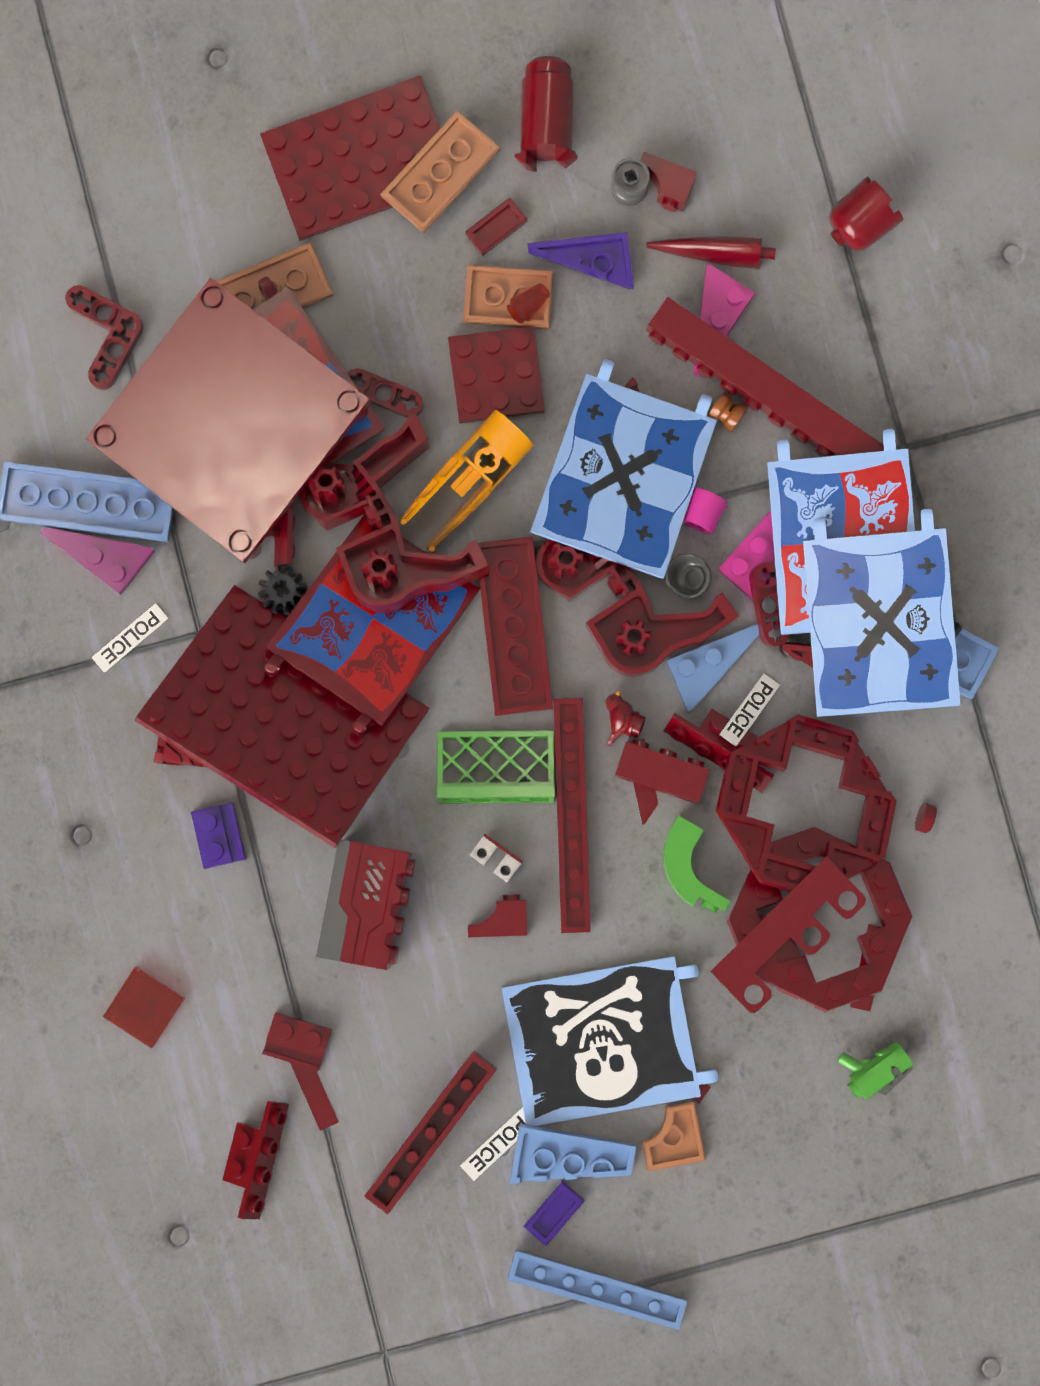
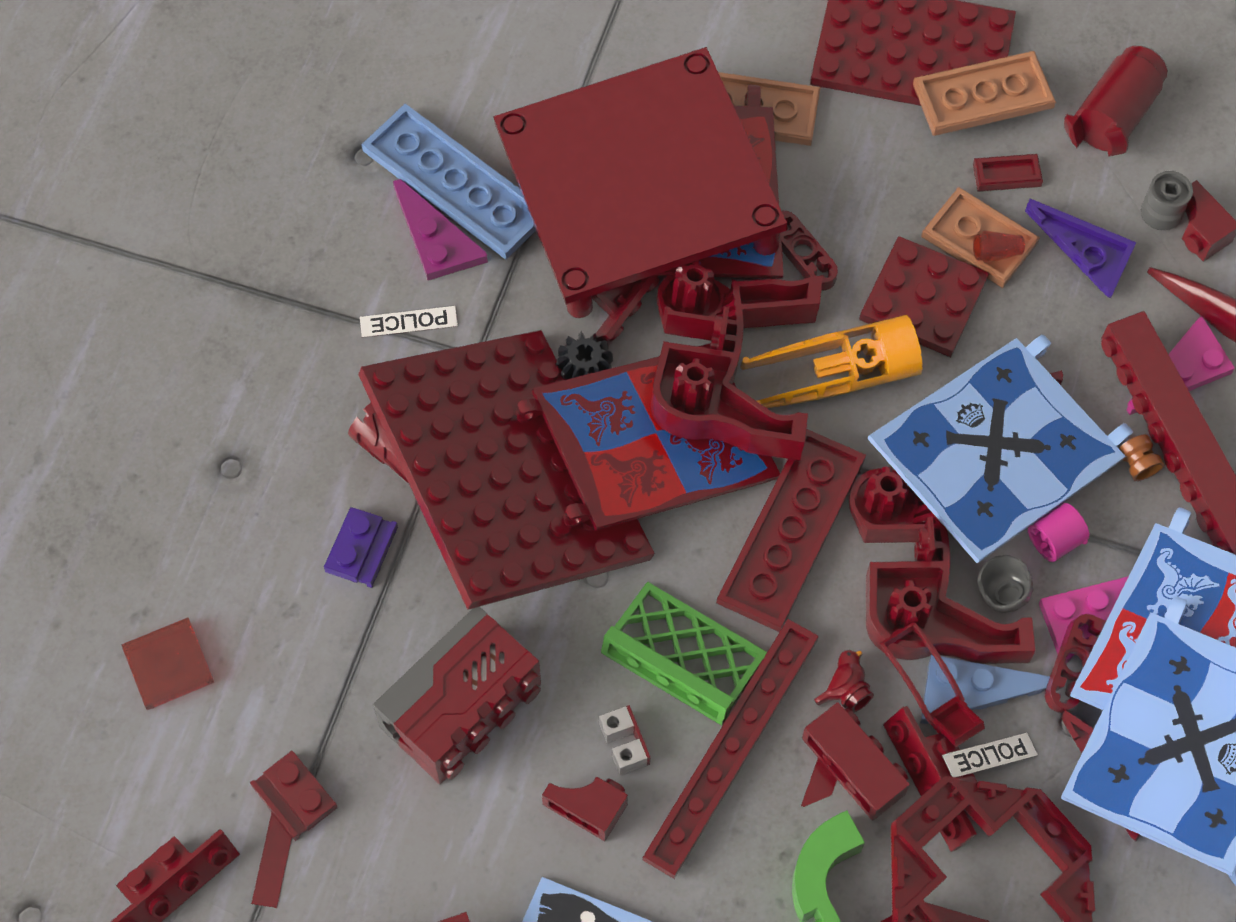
camera: 30 degrees right, 20 degrees down
(114, 325) = (586, 57): dark red beam -> none
(709, 701) = (954, 717): none -> dark red piece

